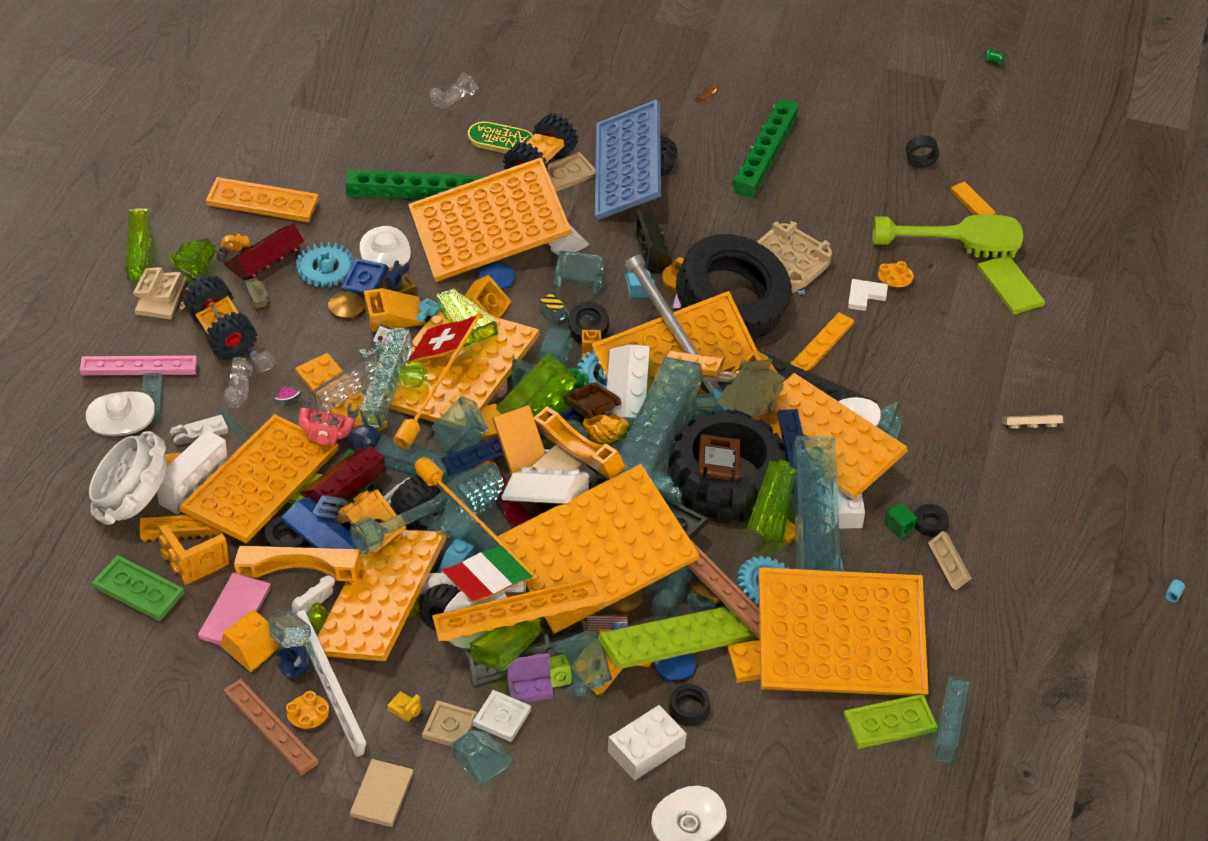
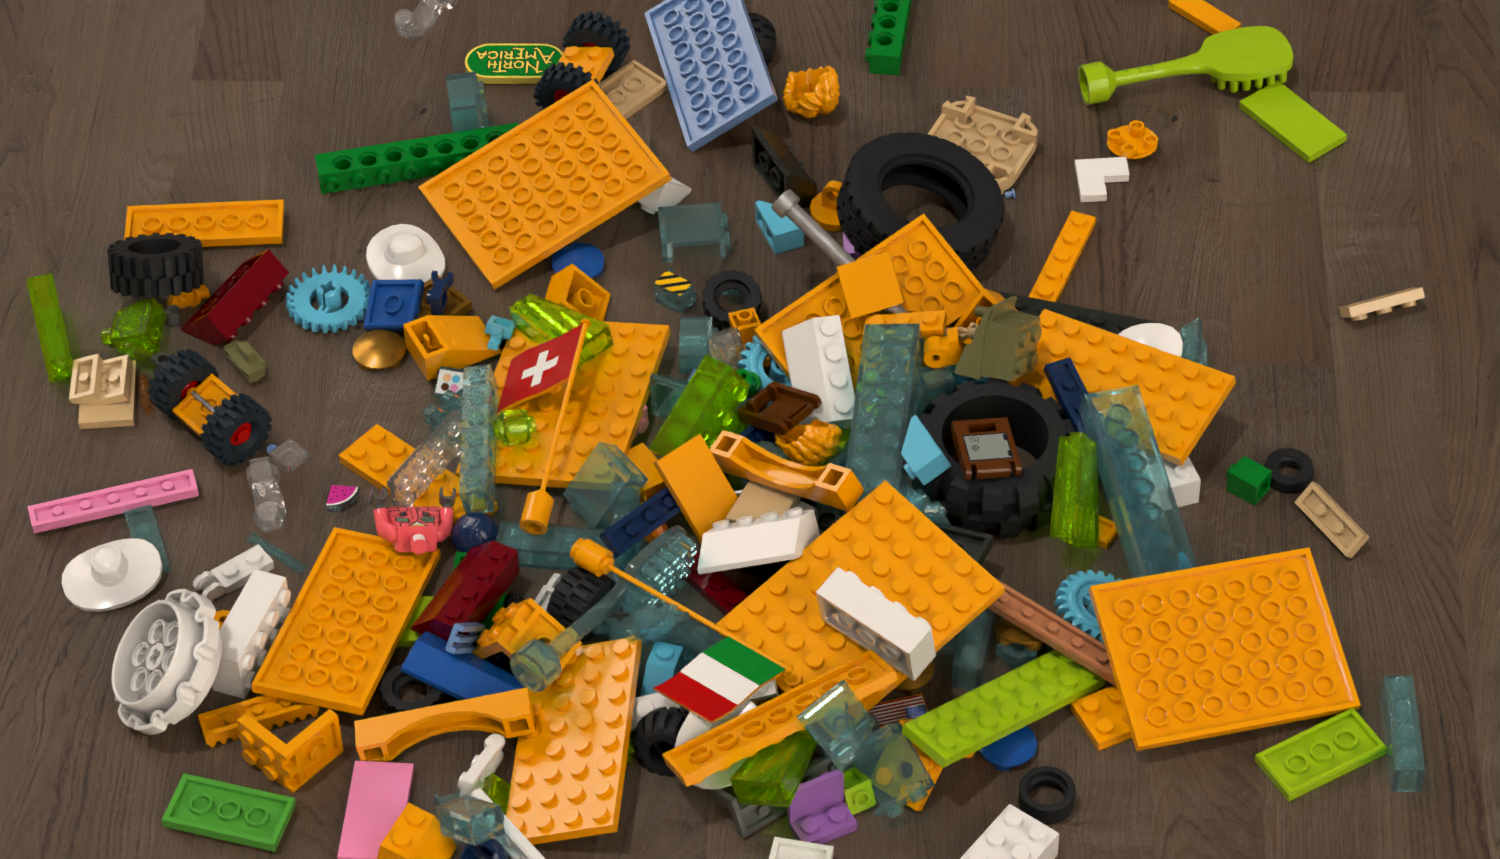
camera: 10 degrees left, 0 degrees up
(217, 218) = (155, 265): none -> black tyre
(456, 155) = (464, 102): none -> clear light blue brick
(554, 623) = (838, 725): none -> clear light blue slope
(572, 353) = (727, 346): none -> clear rock
(602, 559) = (876, 623): none -> white brick
(674, 451) = (922, 453): none -> medium azure slope
(677, 331) = (870, 285): none -> light orange tile
(688, 197) = (812, 92): none -> light orange hair
(713, 385) = (943, 350): none -> light orange leg

